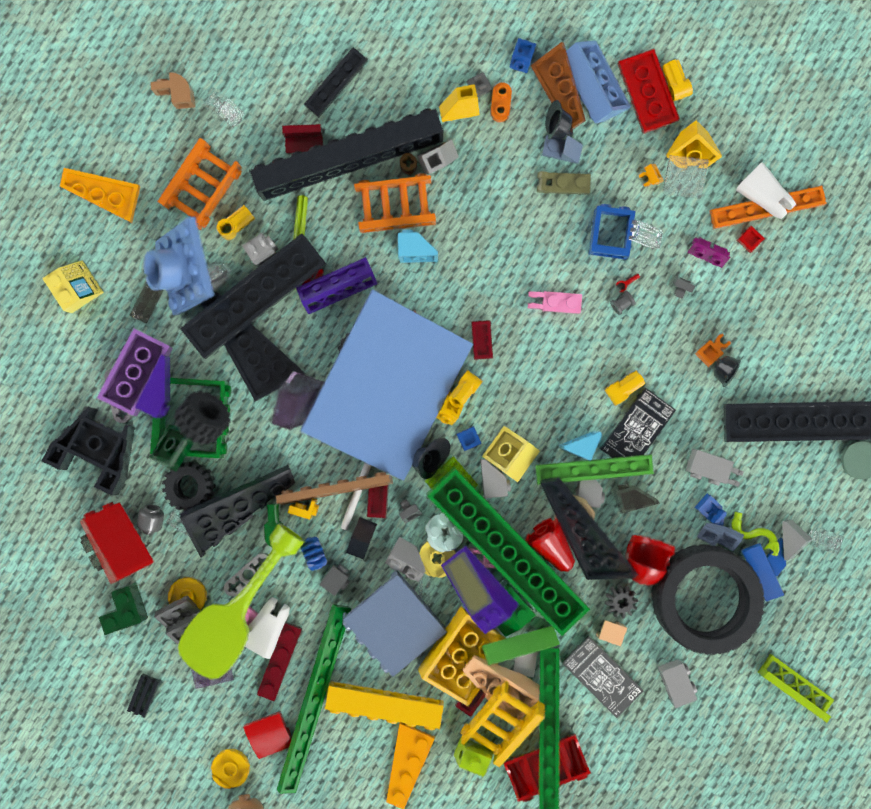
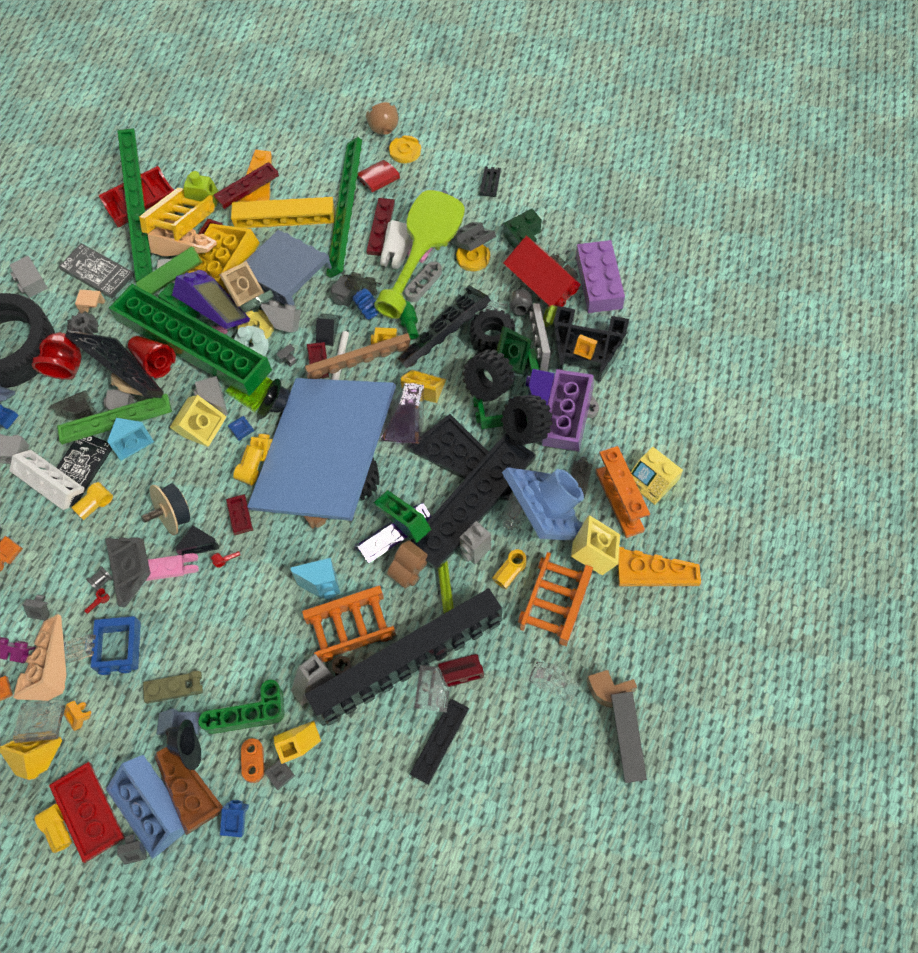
camera: 170 degrees right, 25 degrees down
(57, 532) = (600, 276): none -> medium lavender brick
(95, 434) = (585, 347): none -> light orange tile
(107, 268) = (622, 492): none -> orange fence
(124, 493) = (549, 315): none -> lime tile
(140, 467) = (539, 337): none -> light grey wing
(147, 221) = (596, 546): none -> light yellow slope
(166, 365) = (537, 422): none -> black tyre
(171, 44) = (628, 737): none -> dark grey tile
(274, 444) = (432, 384): none -> yellow slope
(315, 580) = (355, 282): none -> clear smoke hinge
(323, 288) = (403, 516): none -> green slope
(329, 244) = (407, 564): none -> medium nougat brick
(332, 117) = (431, 690): none -> clear slope
(419, 750) = (246, 185): none -> dark red plate
(430, 581) = (257, 301): none -> sand green tile
(443, 605) = (241, 283): none -> tan slope
(504, 144) = (242, 712): none -> green beam
(507, 297) = (220, 561): none -> red hand
(526, 318) = (196, 542): none -> black slope
(546, 354) = (169, 507): none -> piece
(594, 308) = (128, 566): none -> dark grey wing
(611, 47) = (132, 850): none -> dark grey tile
(662, 405) = (42, 479): none -> white fence
(677, 223) = (46, 666): none -> light nougat wedge

